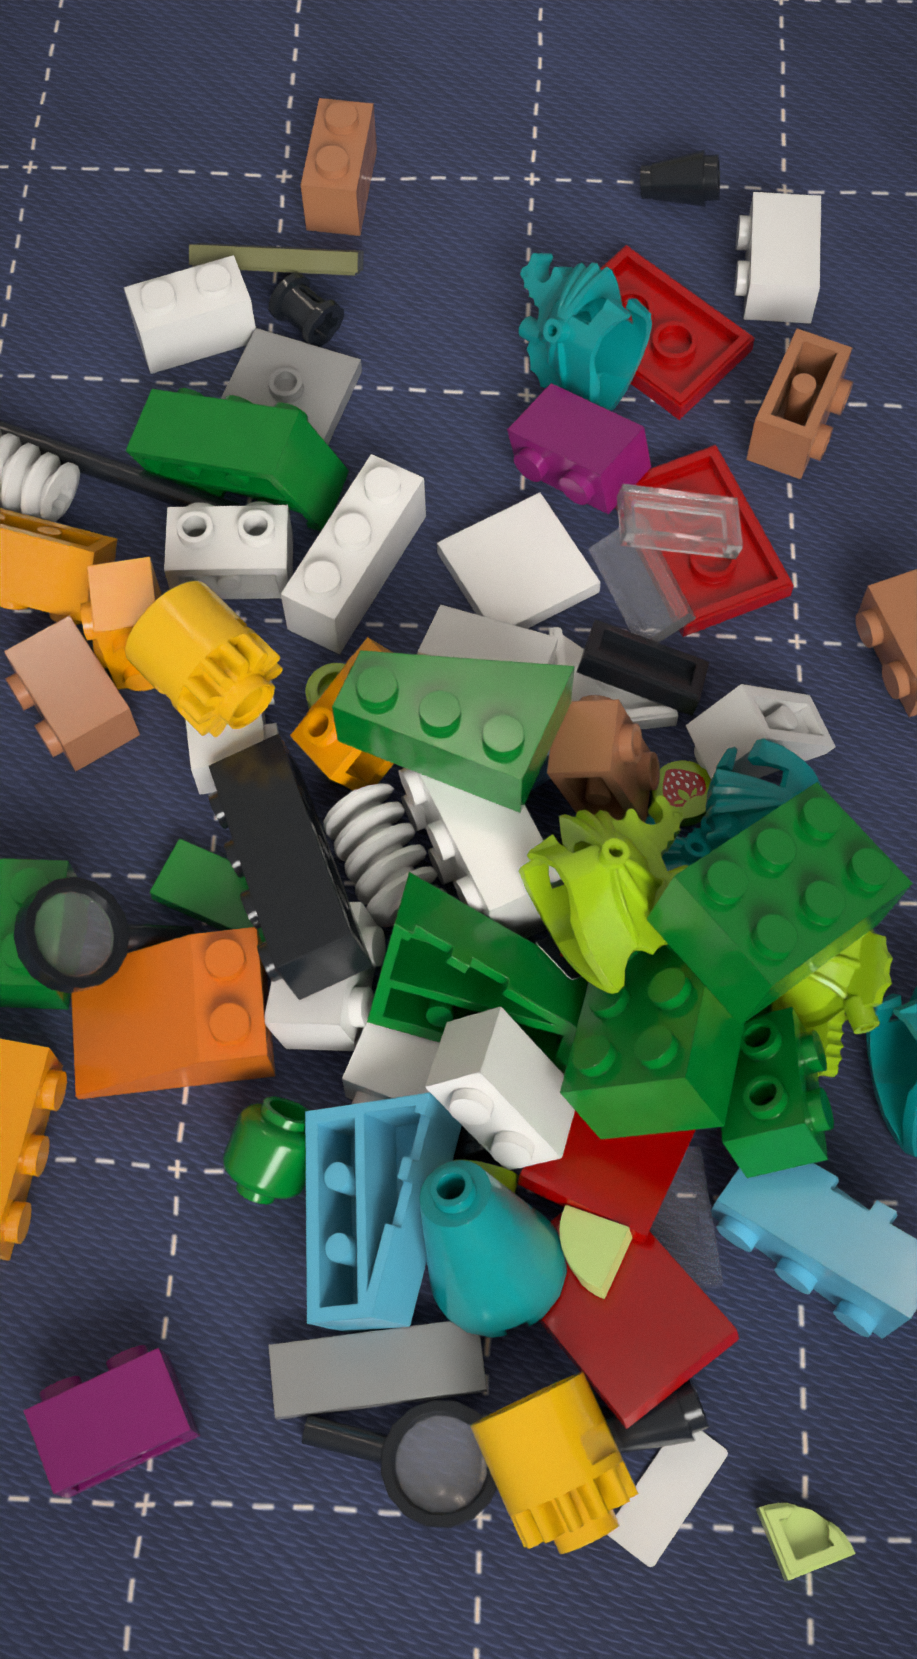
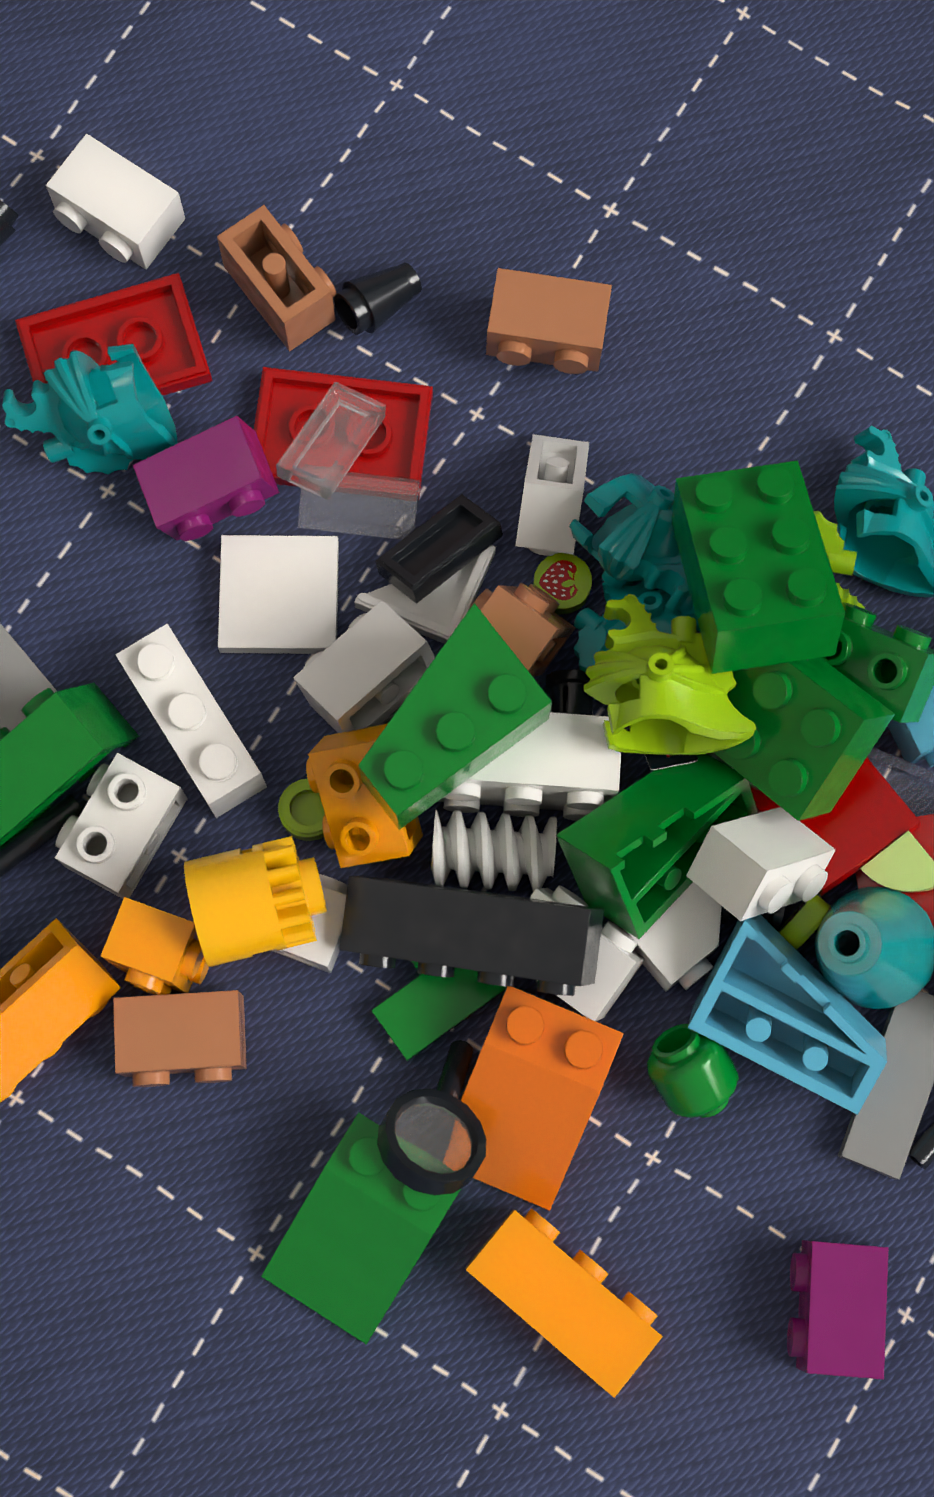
camera: 65 degrees left, 10 degrees up
(844, 496) = (376, 297): none -> black cone

